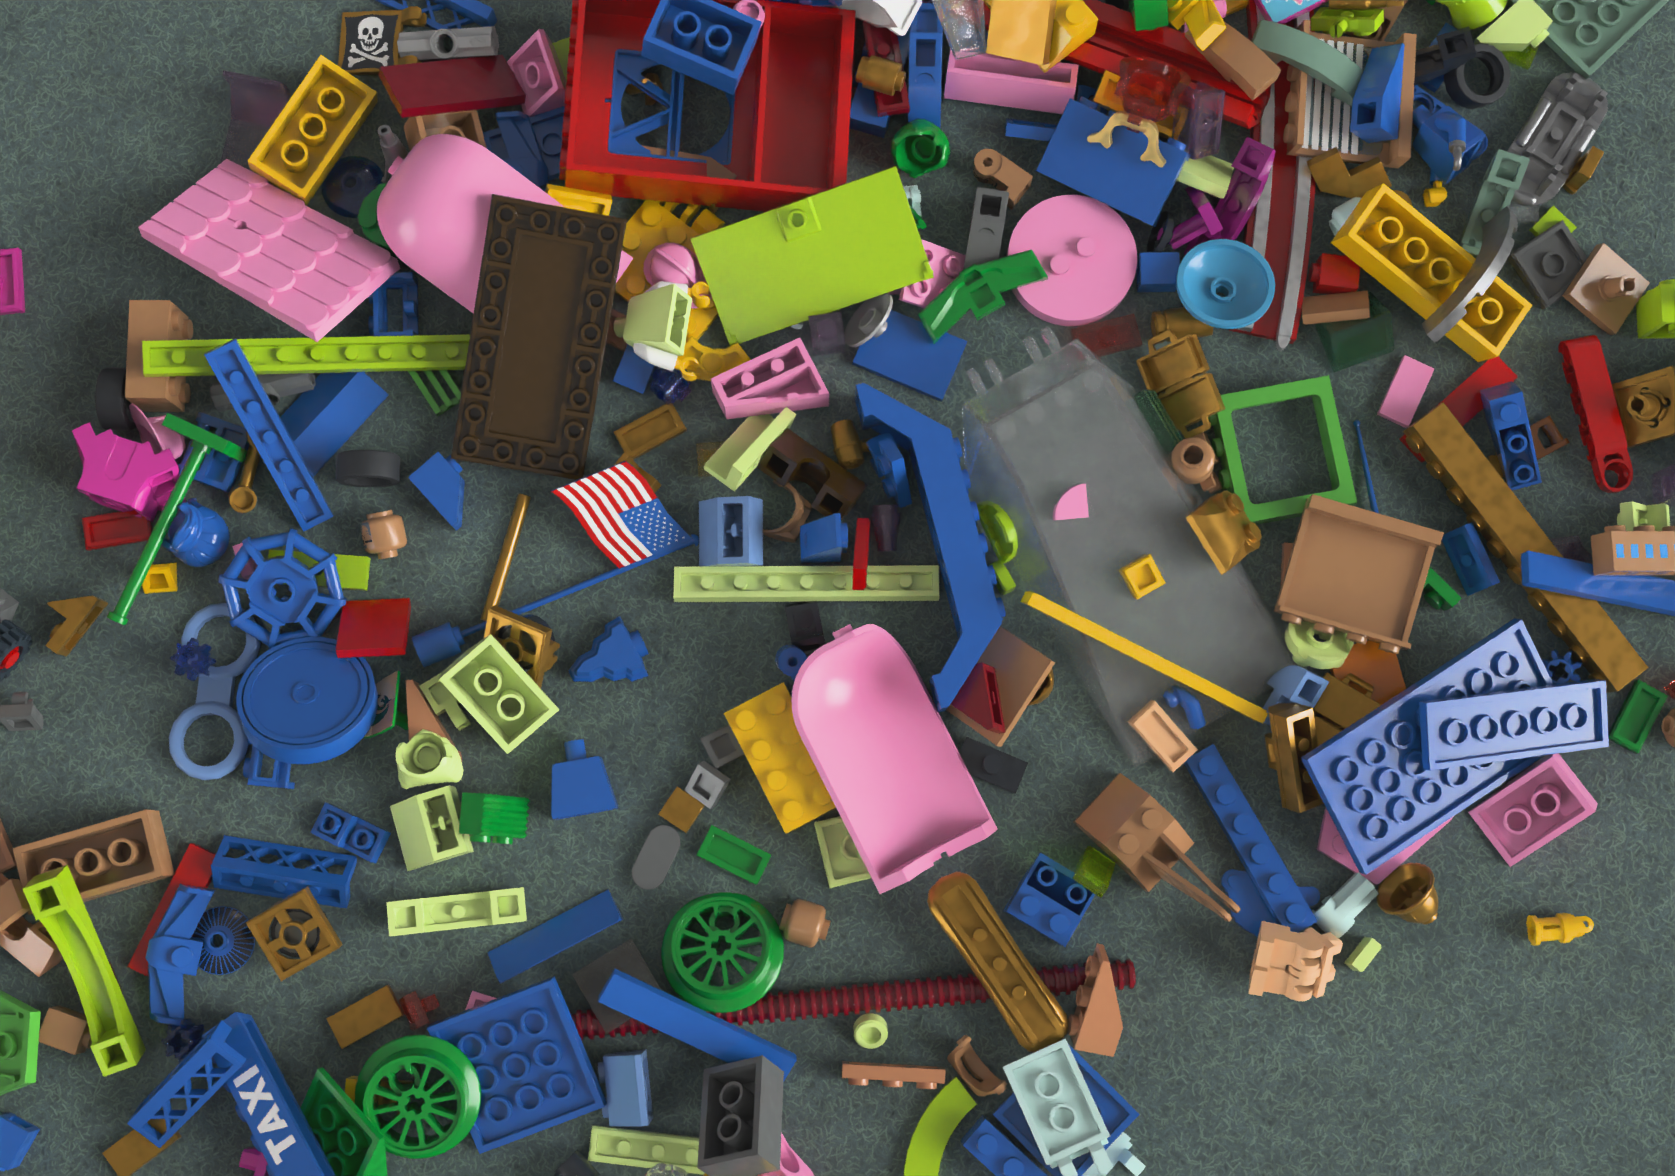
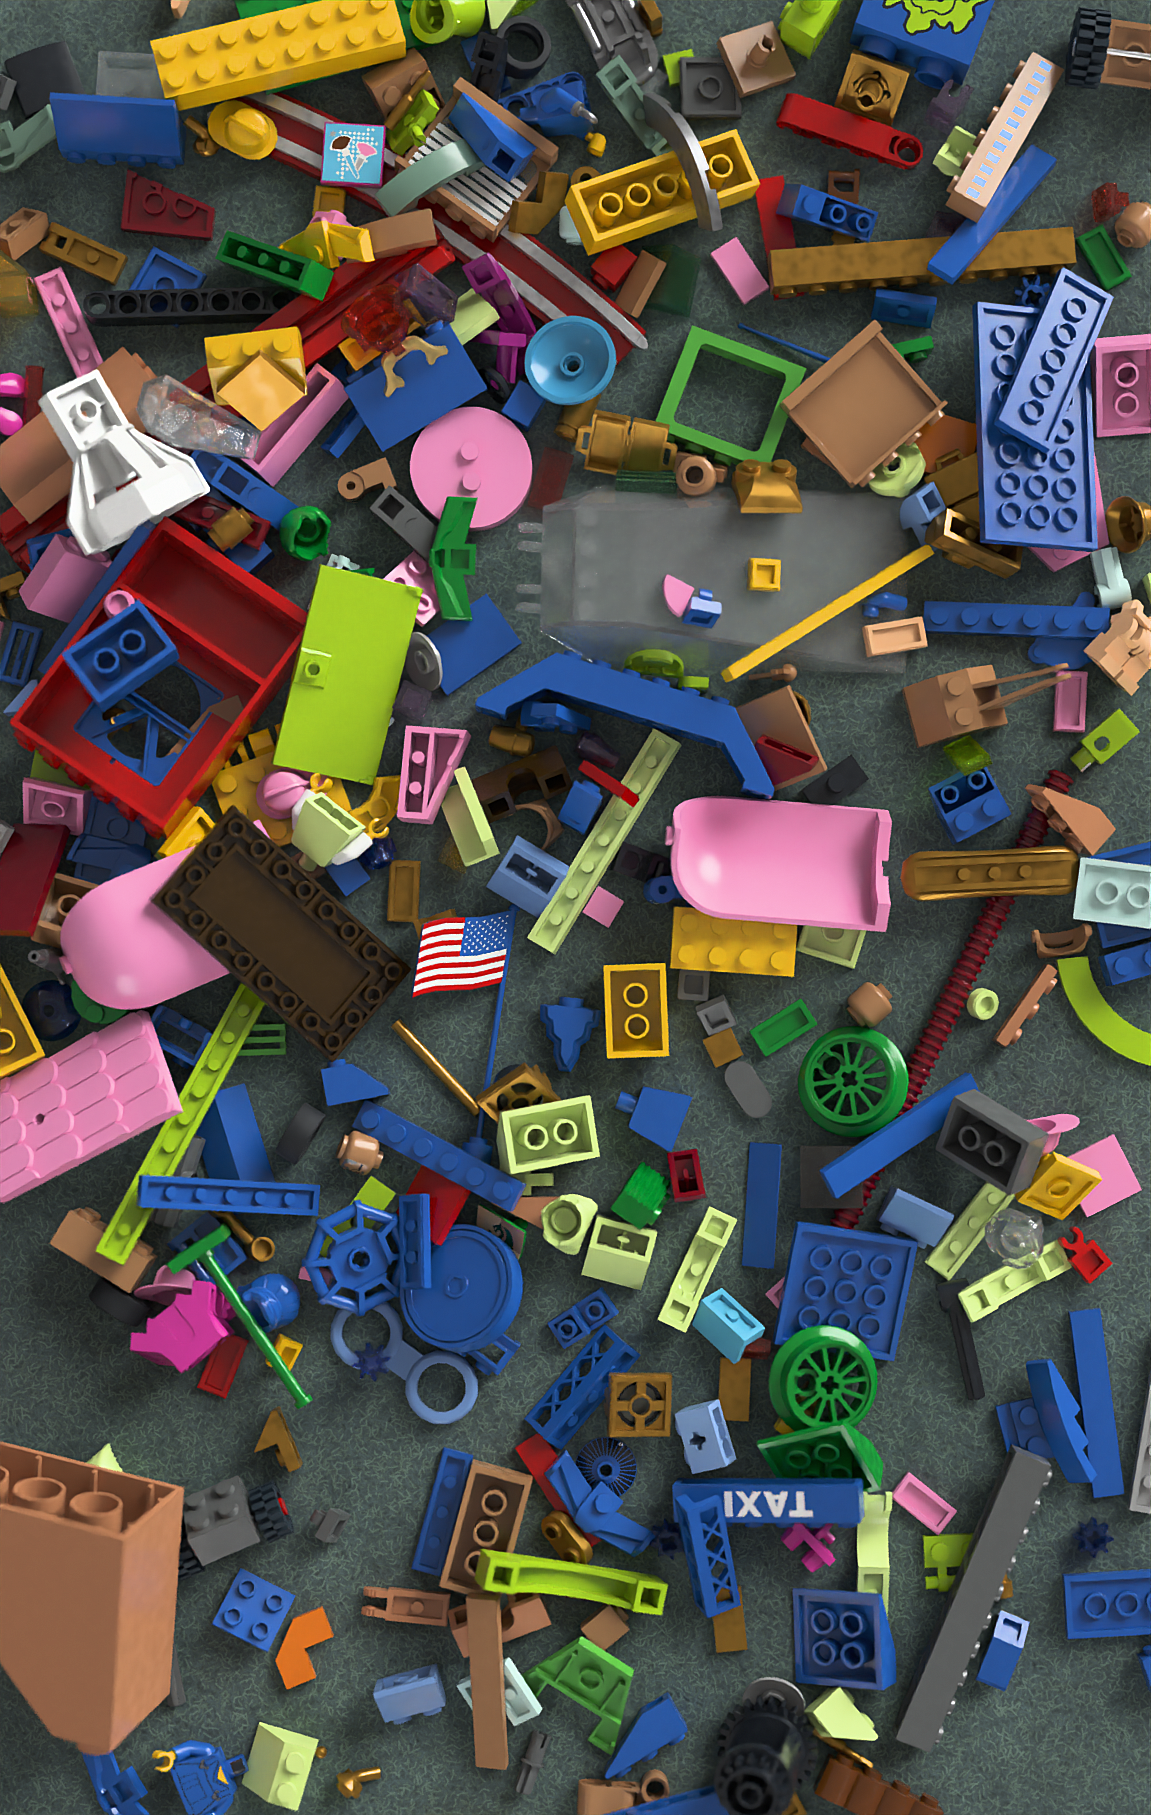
camera: 55 degrees left, 5 degrees up
(92, 809) = (442, 1511): none -> blue tile
(130, 943) = (566, 1538): none -> pearl gold plate
(301, 1015) = (708, 1421): none -> light blue brick
(327, 631) = (415, 1241): none -> blue tile
(421, 971) = (726, 1324): none -> medium azure panel
(422, 607) = (439, 1155): none -> blue plate
(538, 848) = (685, 1175): none -> dark red slope
(665, 706) = (636, 1010): none -> yellow brick
(745, 619) = (603, 907): none -> bright pink tile
(1065, 655) = (787, 673): none -> medium nougat piece
(1072, 536) = (701, 610): none -> blue tile
(1205, 940) = (1070, 703): none -> bright pink tile
(1207, 997) = (1116, 729): none -> lime torso

